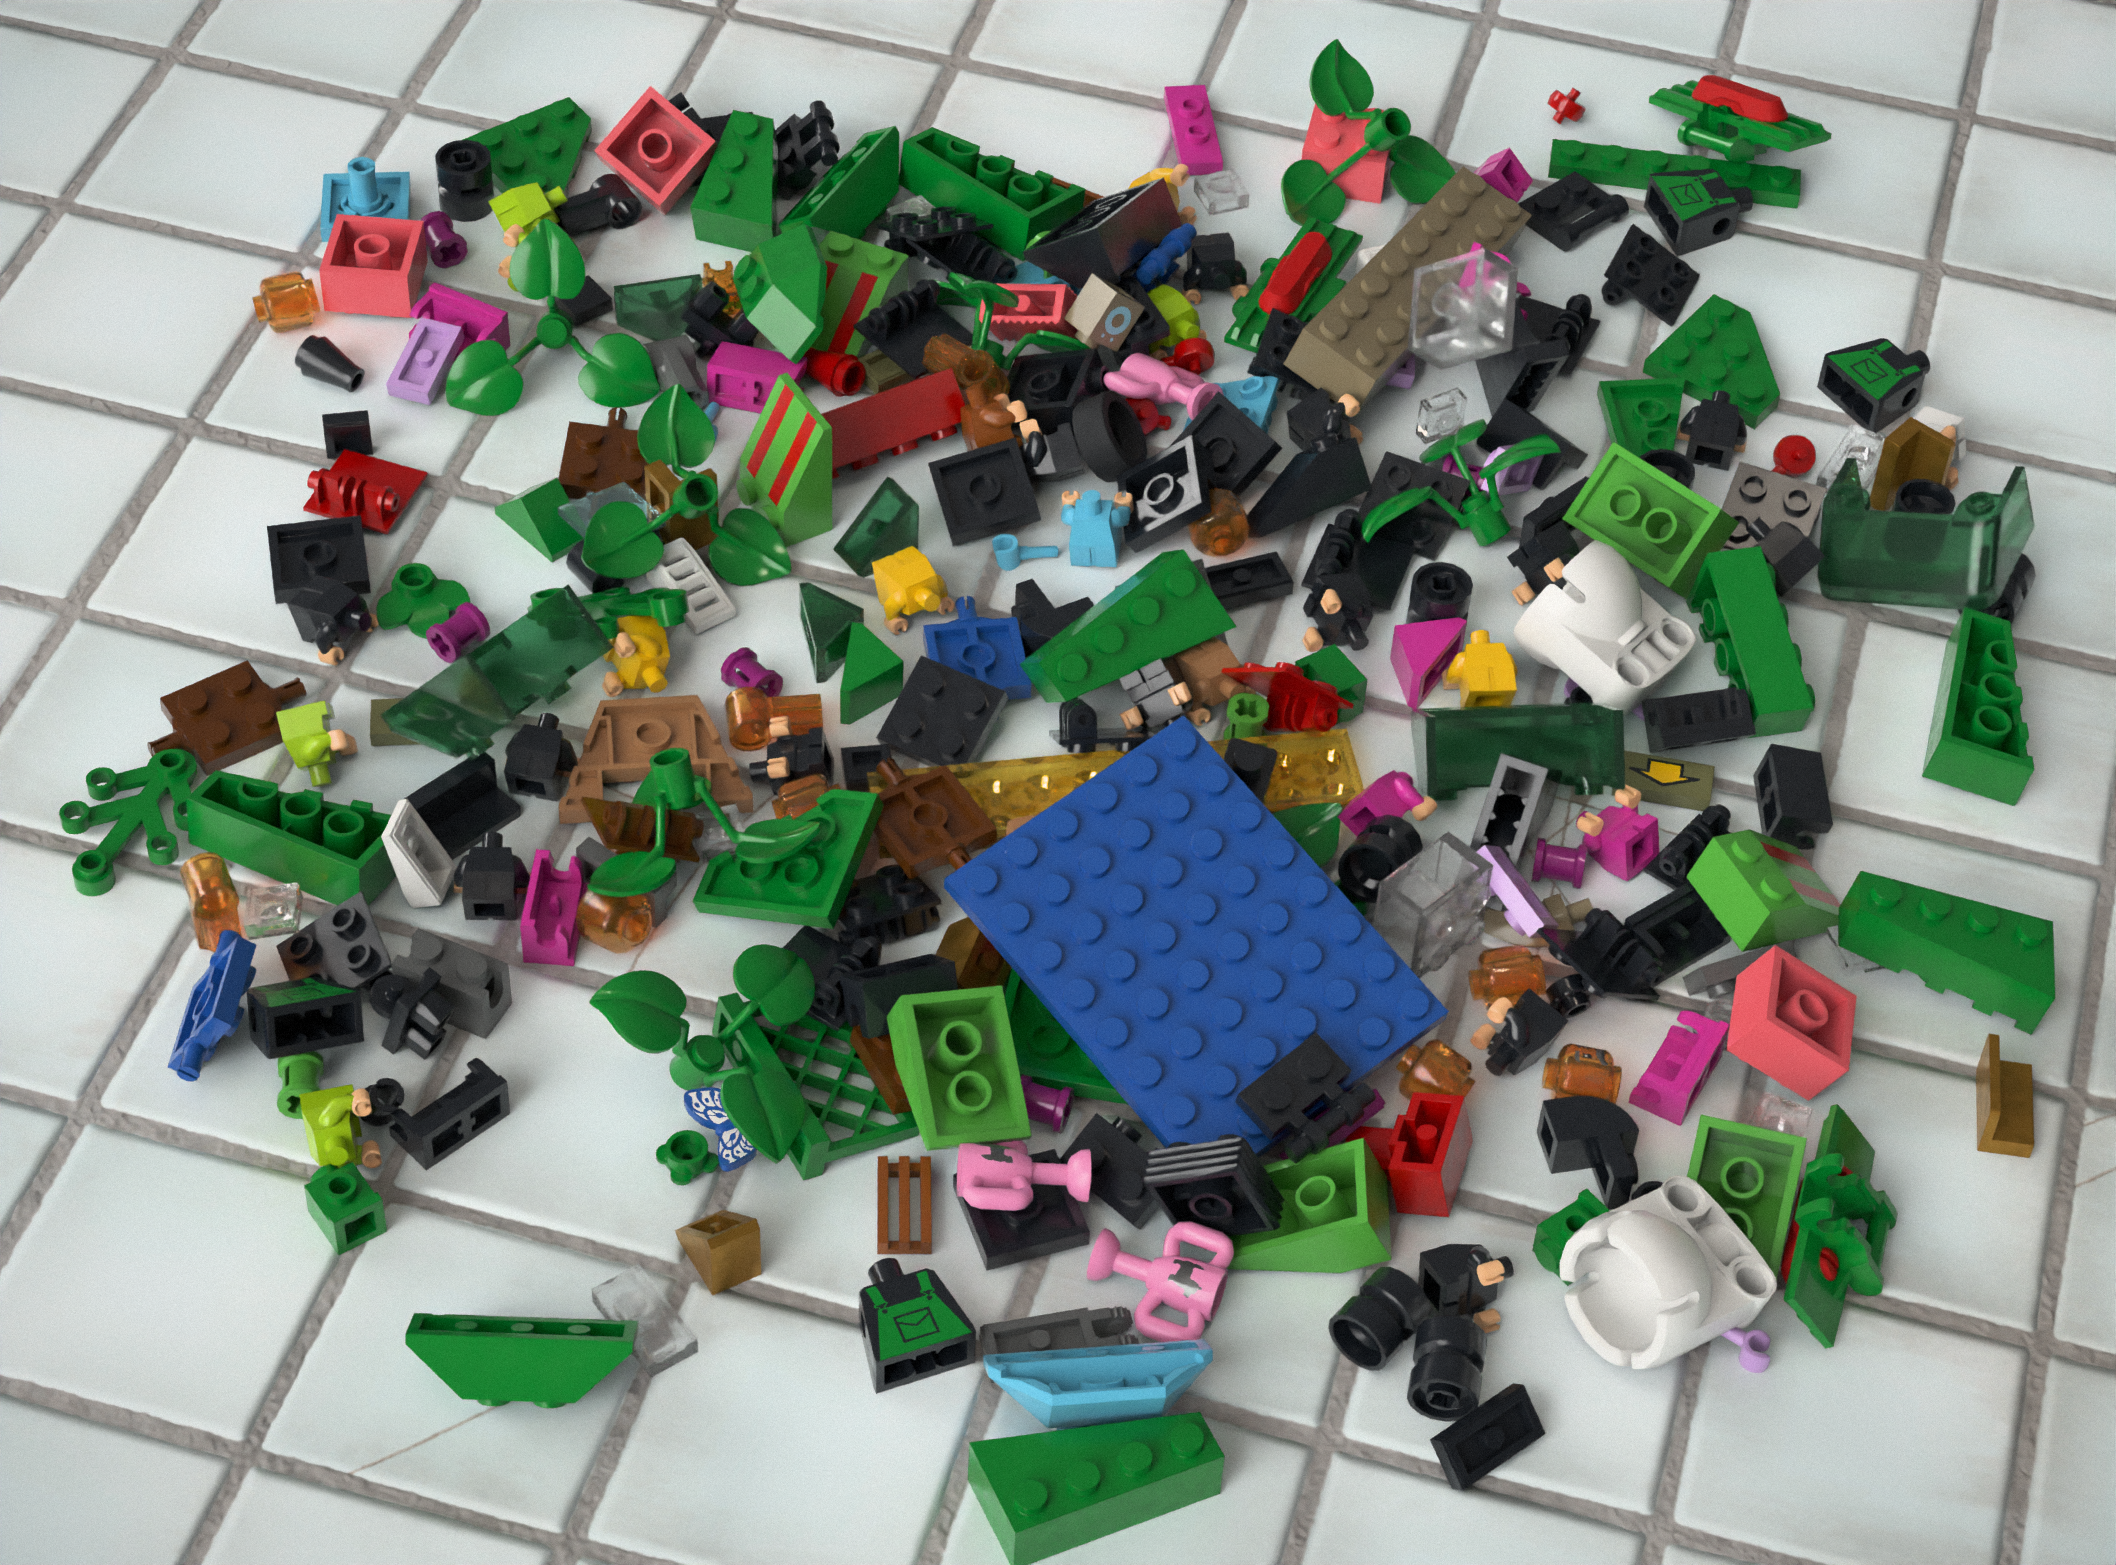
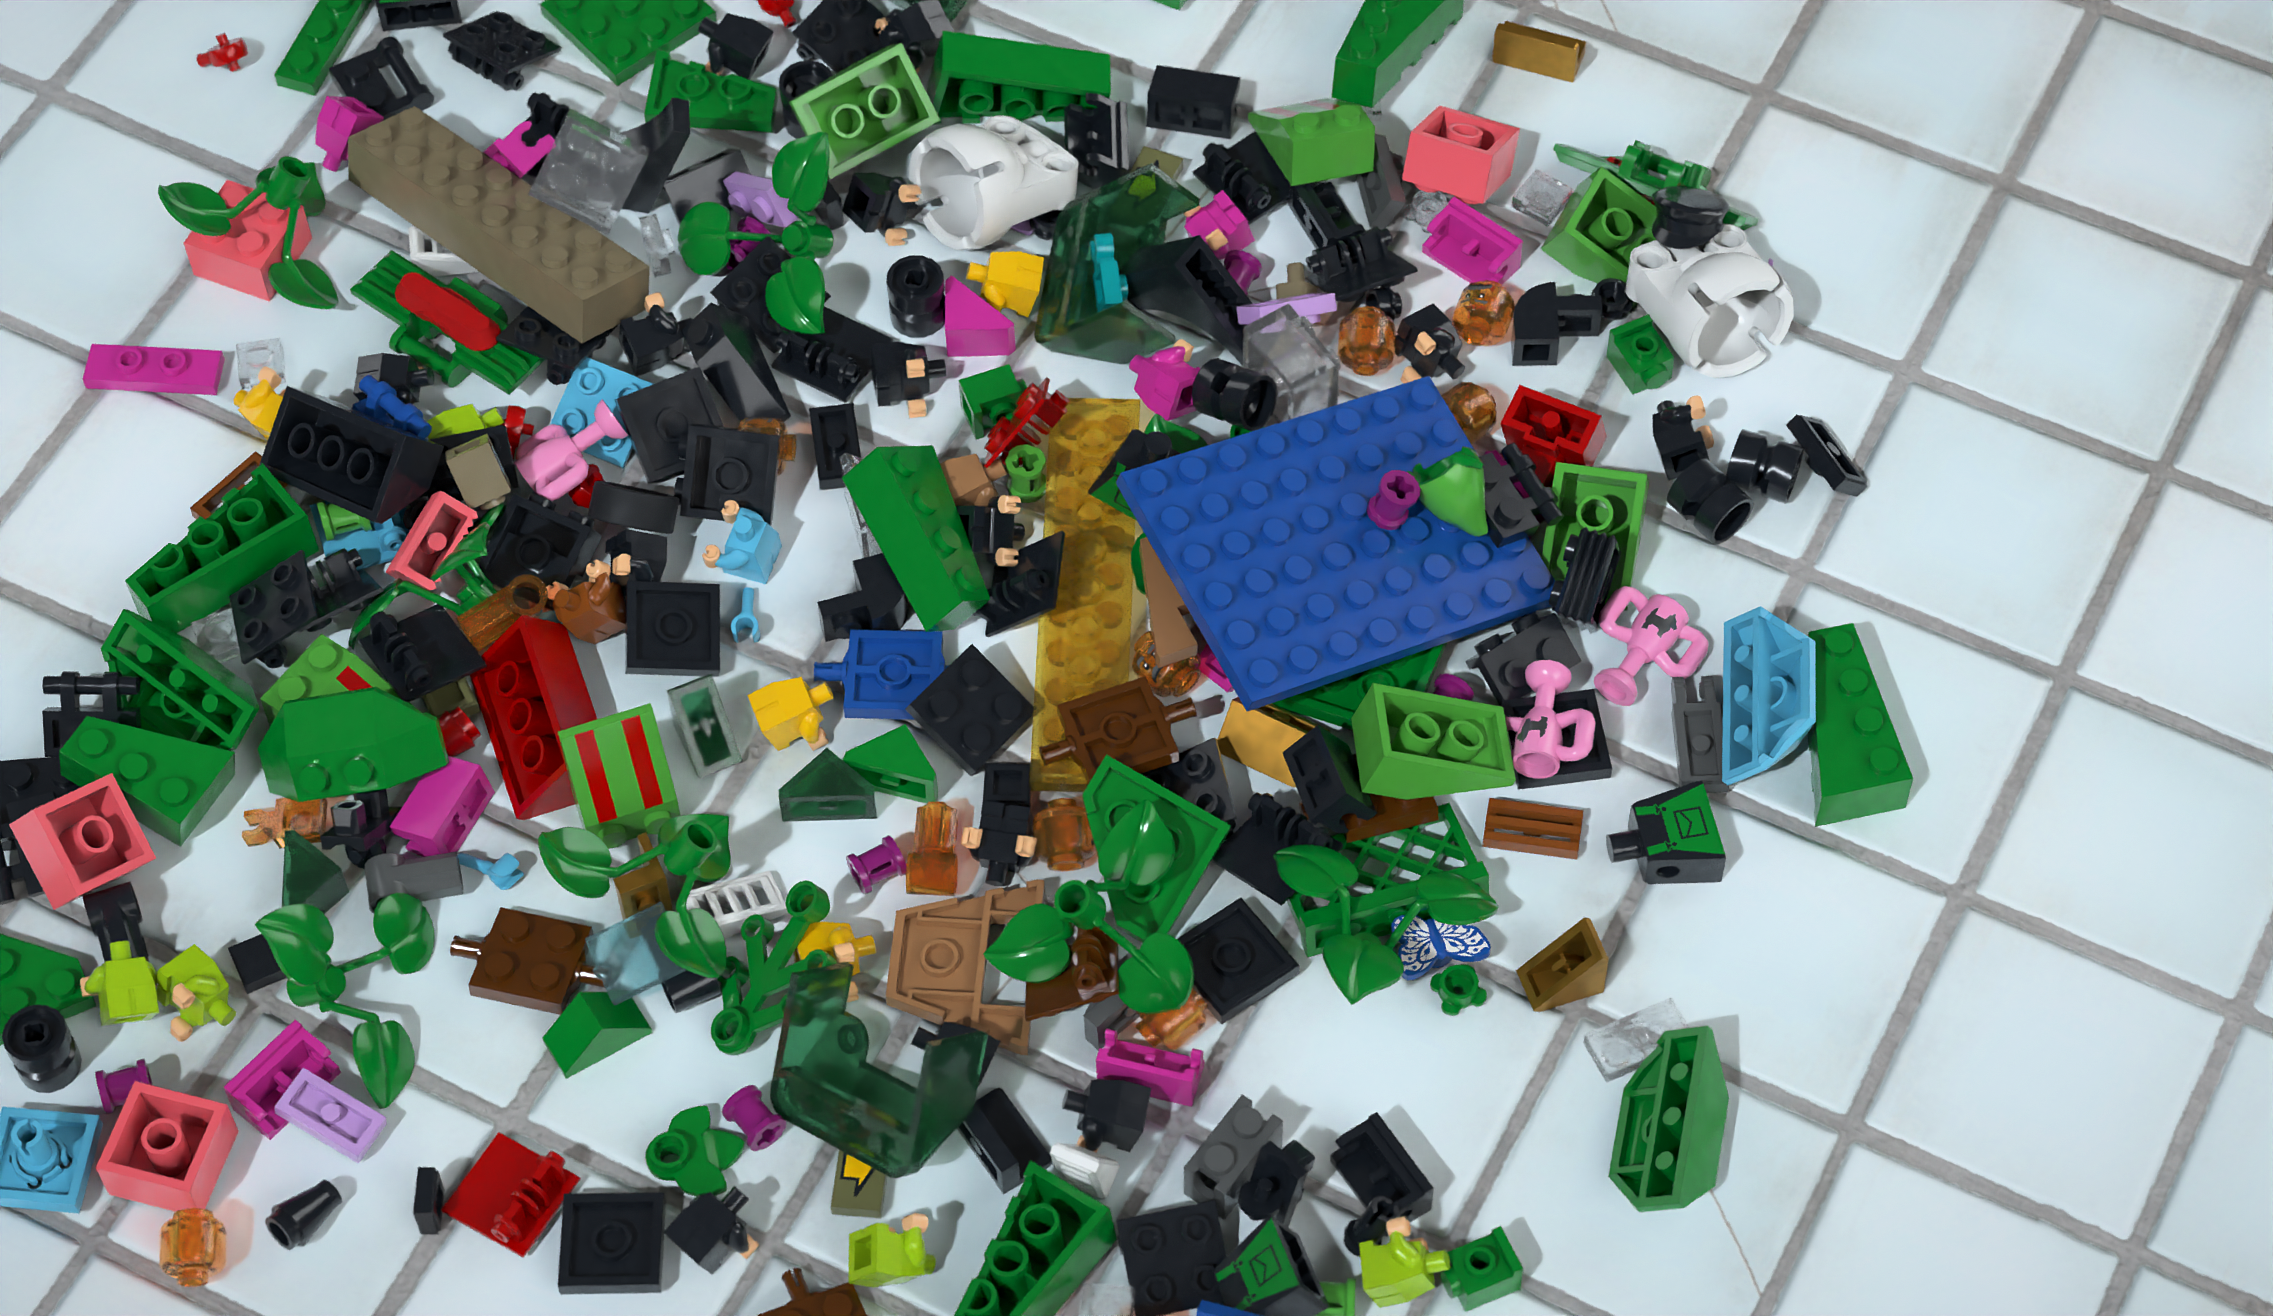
camera: 75 degrees left, 10 degrees up
(690, 952) = (1236, 960): none -> black plate
(1238, 968) = (1396, 494): none -> magenta bush
(1270, 1024) = (1455, 491): none -> bright green hat
(1507, 737) = (1108, 284): none -> teal plate
(1762, 1225) = (1687, 216): none -> black piece

